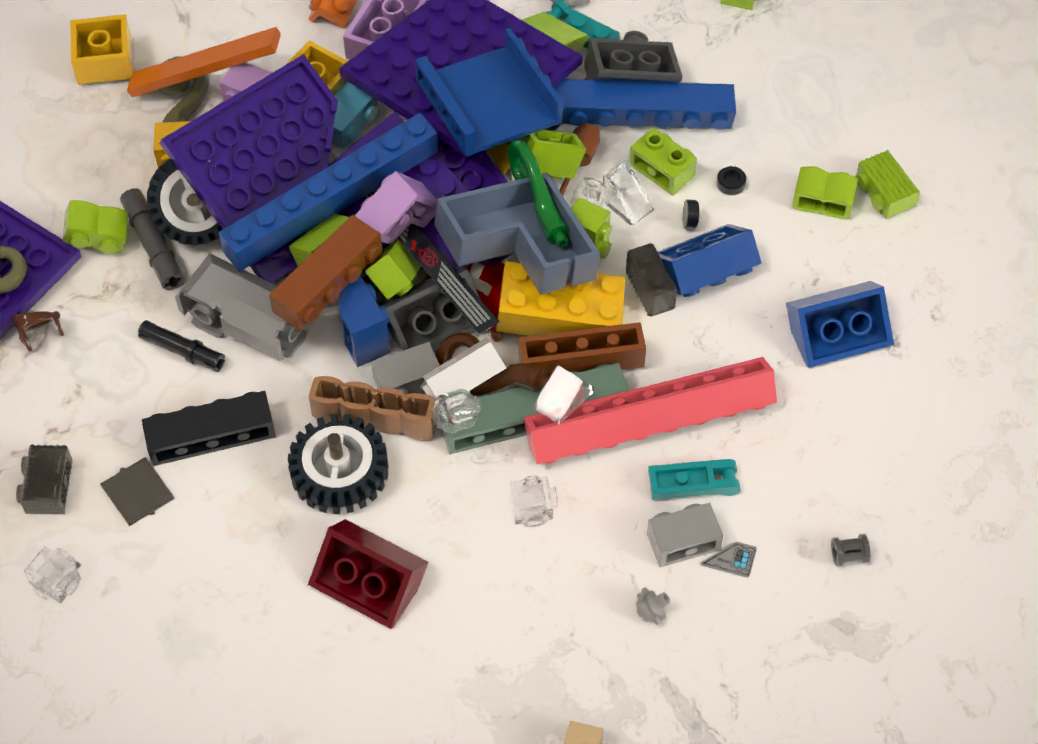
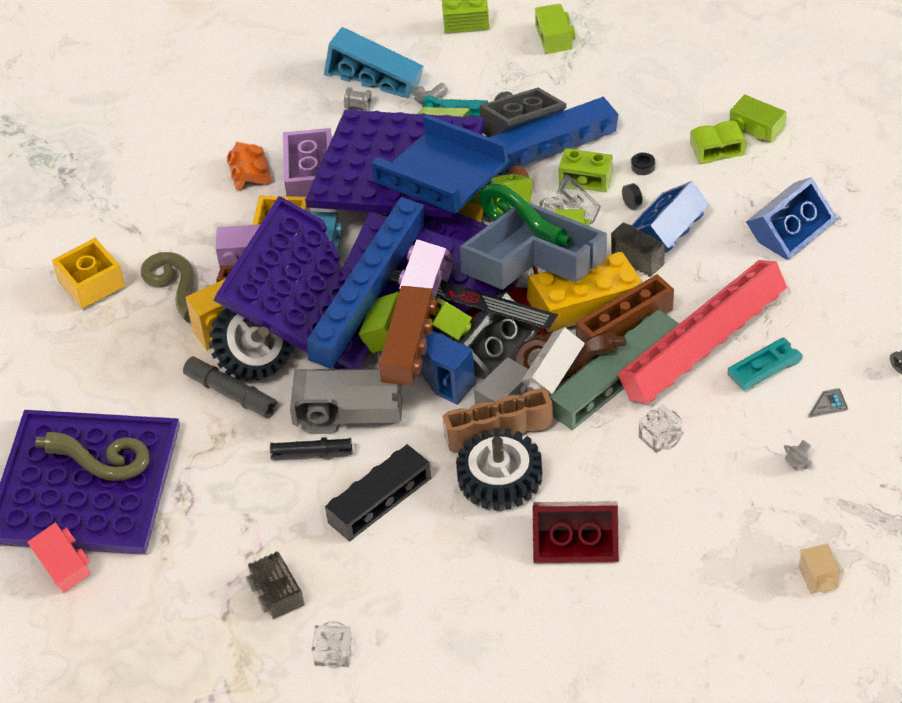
camera: 25 degrees left, 10 degrees down
(28, 321) = (176, 483): reddish brown piece -> none
(95, 226) = (180, 396): lime brick -> none
(137, 491) = (351, 563): clear smoke piece -> none
(204, 62) = (188, 242): orange tile -> none
(455, 411) = (568, 388): clear head -> none
(562, 395) = (639, 341): clear slope -> none
(684, 534) = (786, 399): light grey brick -> none

